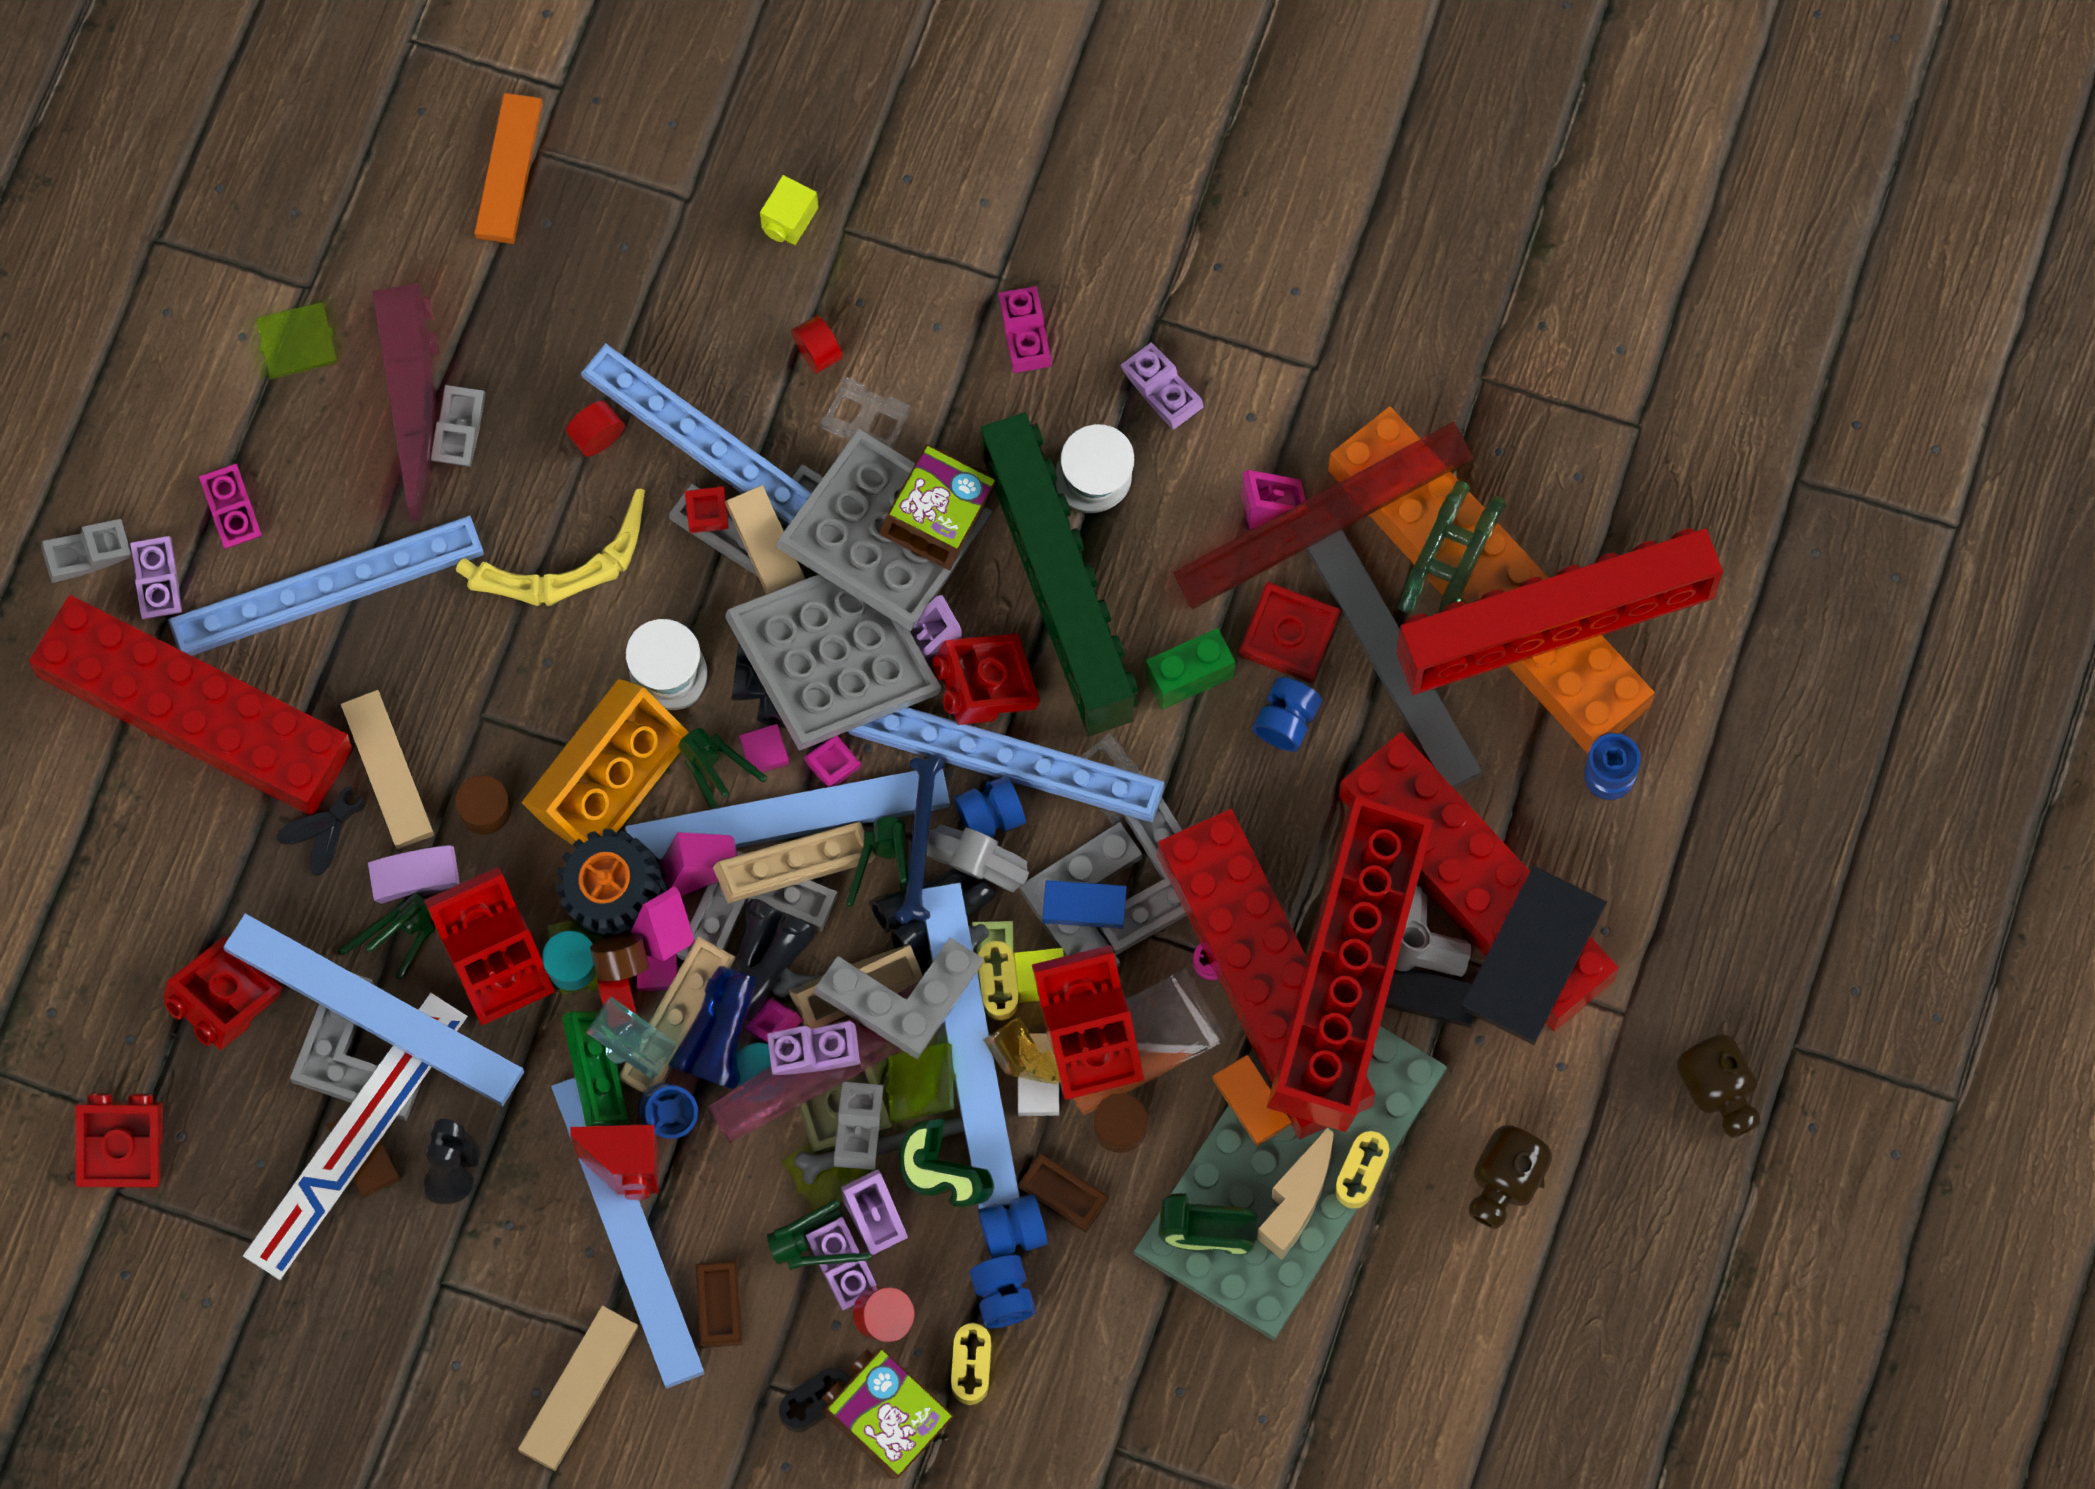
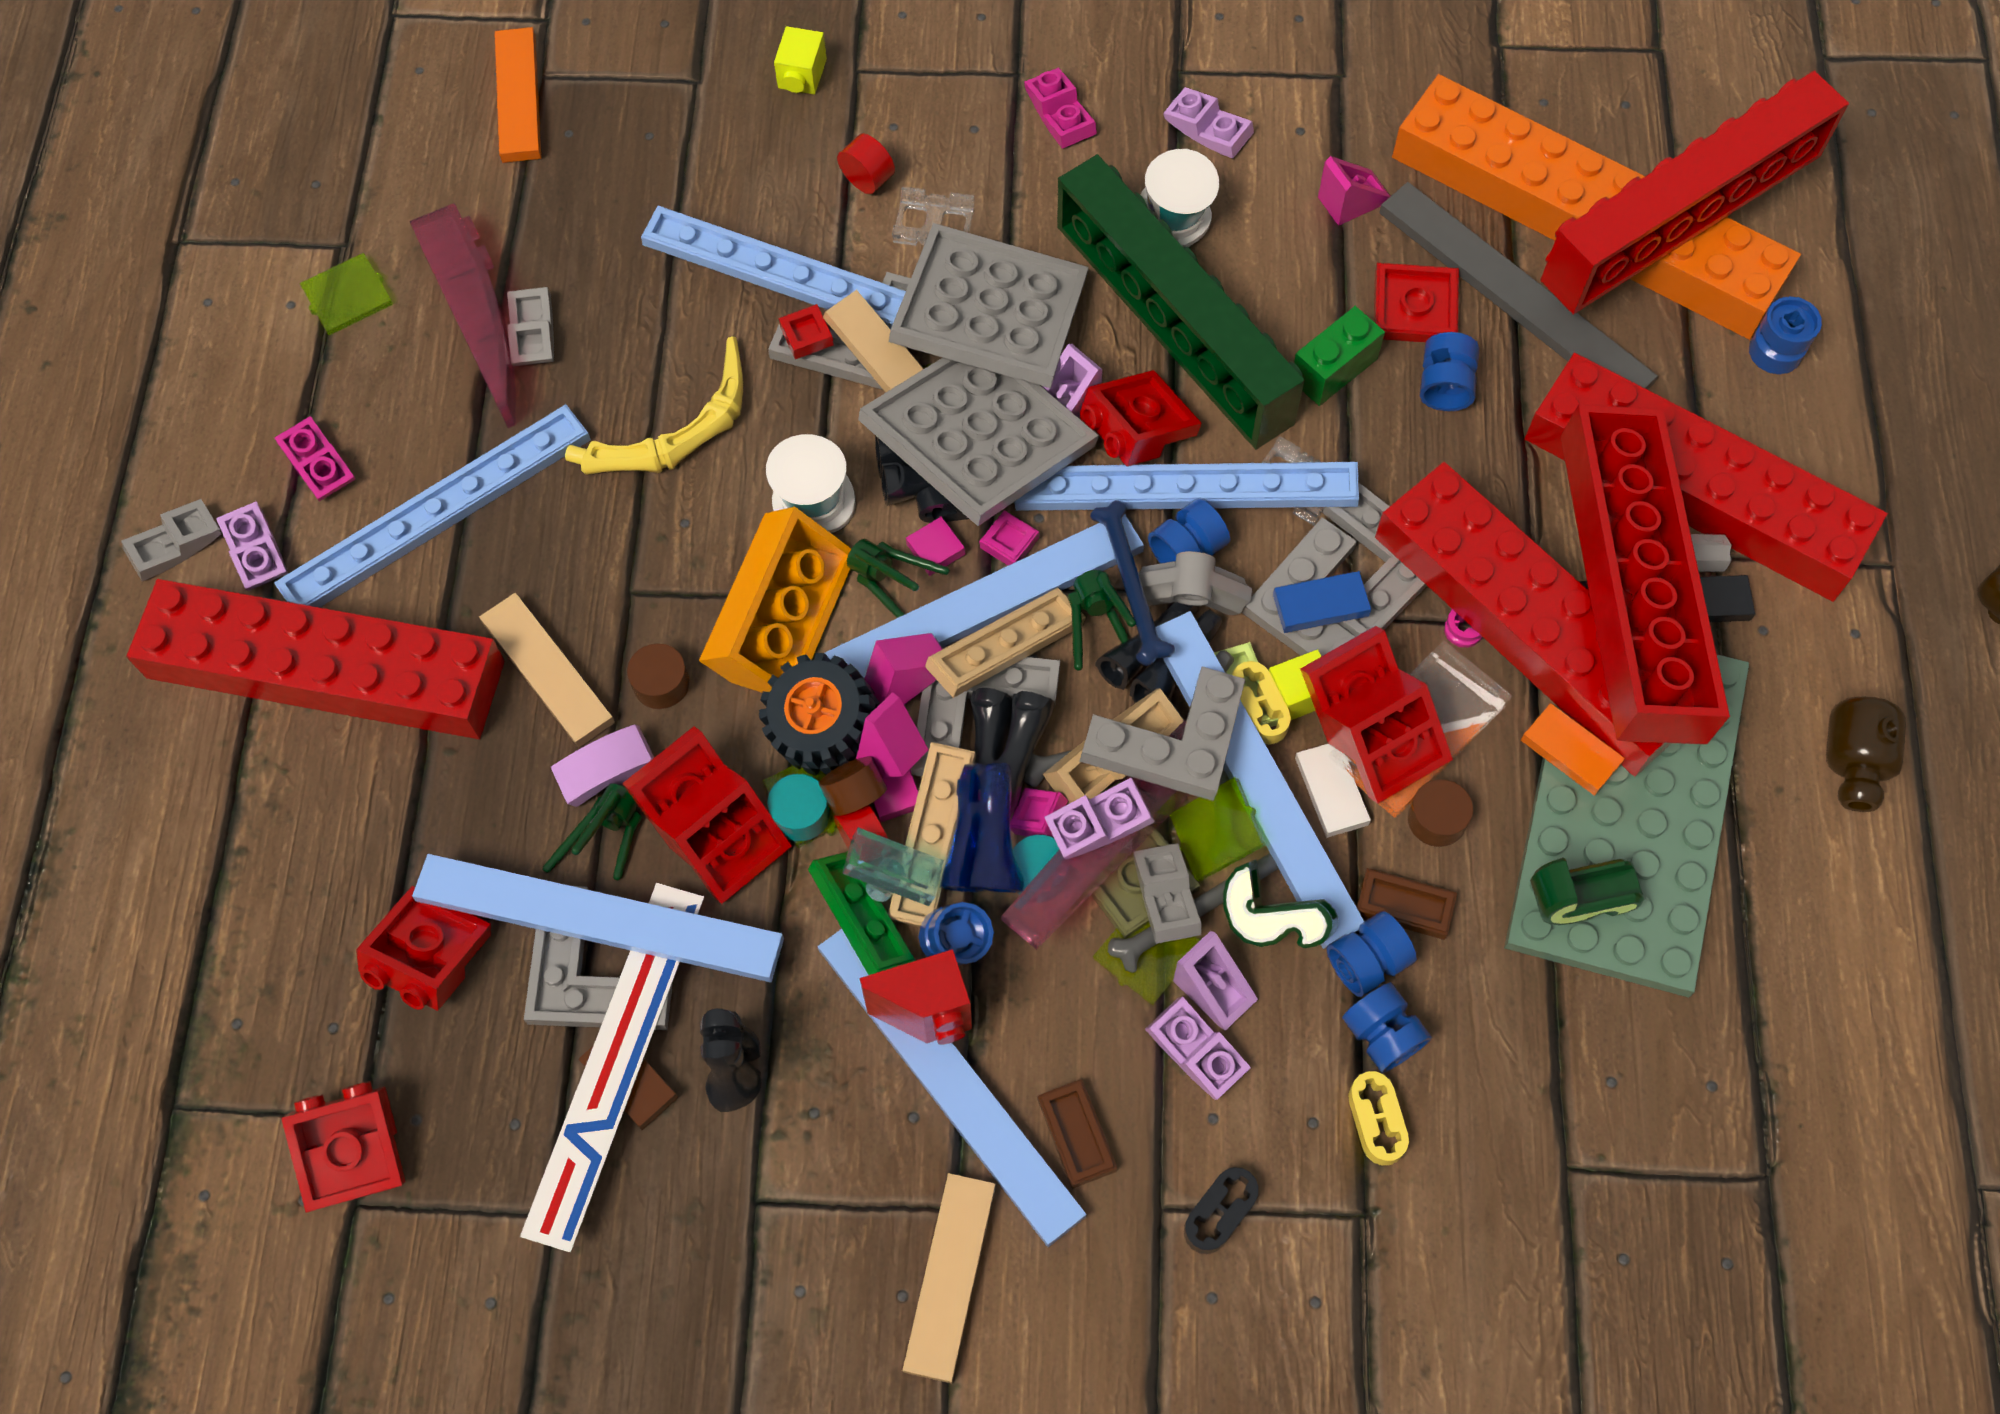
camera: 15 degrees left, 5 degrees down
(324, 826) = (495, 745): black piece -> none
(595, 428) = (670, 290): red piece -> none
(790, 1241) = (1135, 1041): dark green plant -> none
(883, 1313) = (1266, 1090): piece -> none
(885, 1411) = (1310, 1201): brick -> none
(938, 506) = (1038, 267): brick -> none
(1019, 1055) = (1311, 772): clear yellow slope -> none
(1297, 1197) = (1667, 832): tan slope -> none
(1323, 515) = (1415, 181): clear red tile -> none
(1353, 1166) = (1727, 787): light yellow beam -> none
(1444, 528) = (1539, 158): clear green piece -> none
(1533, 955) = (1806, 522): black tile -> none

